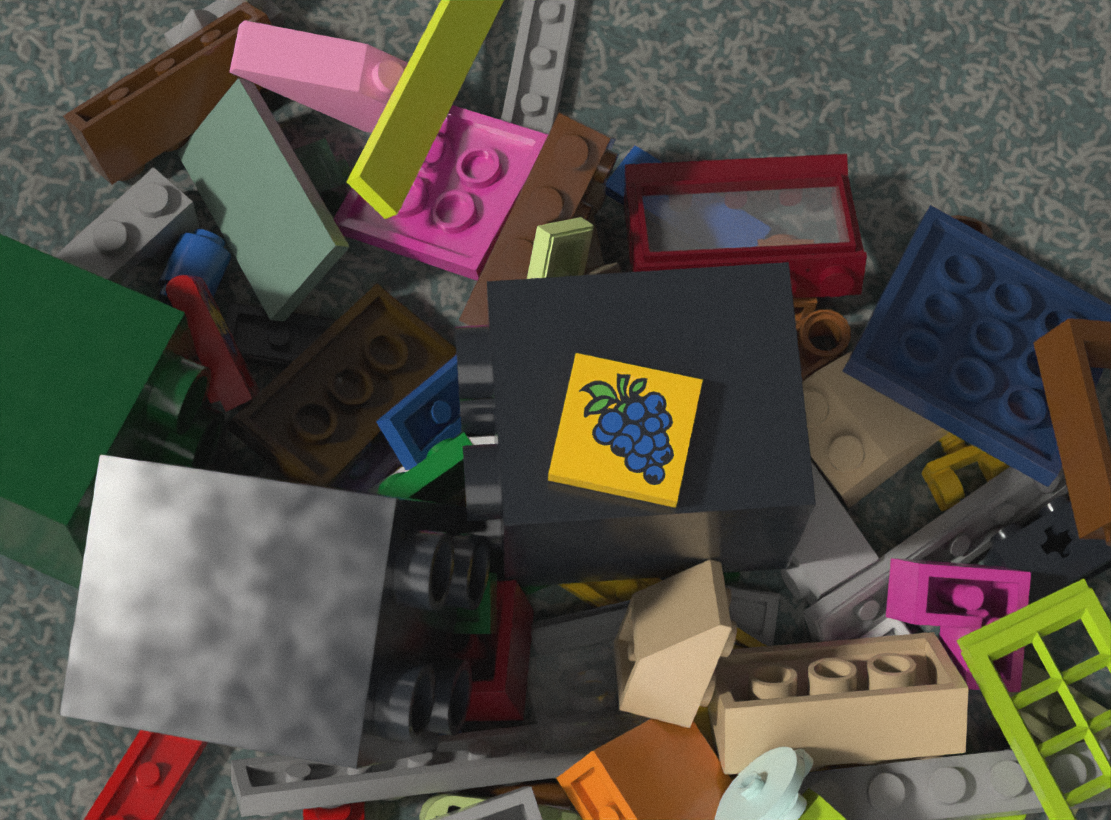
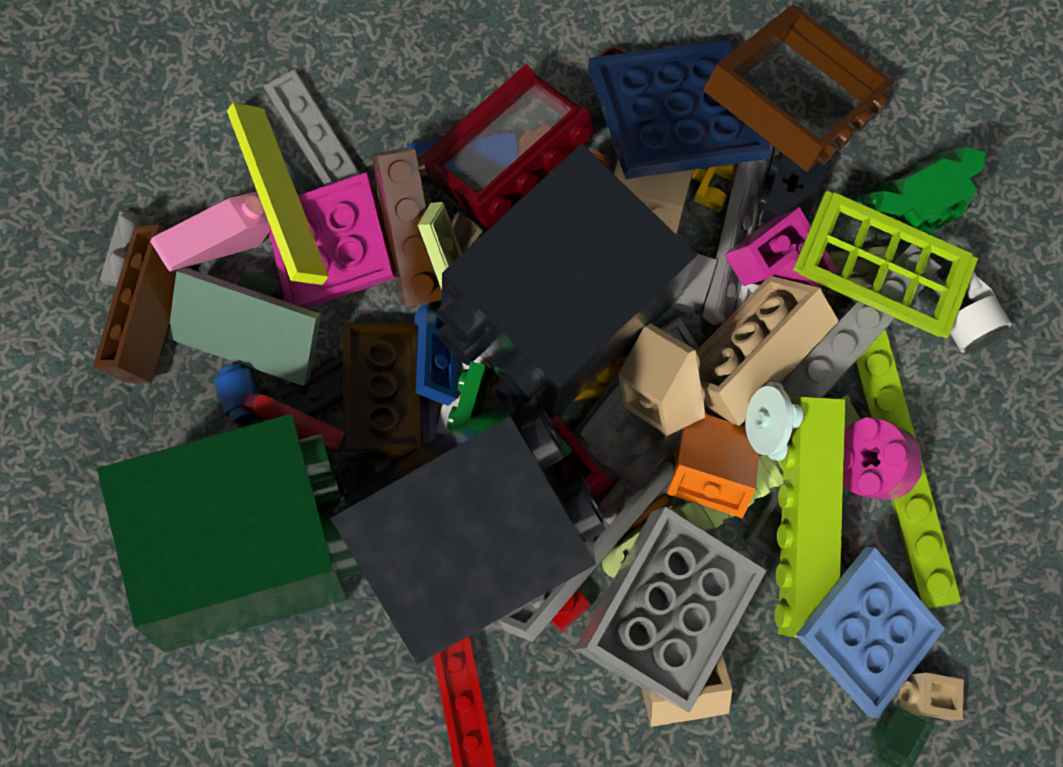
camera: 40 degrees left, 5 degrees up
(134, 228) = (188, 399): light grey arch -> none
(625, 430) = (578, 292): yellow tile -> none

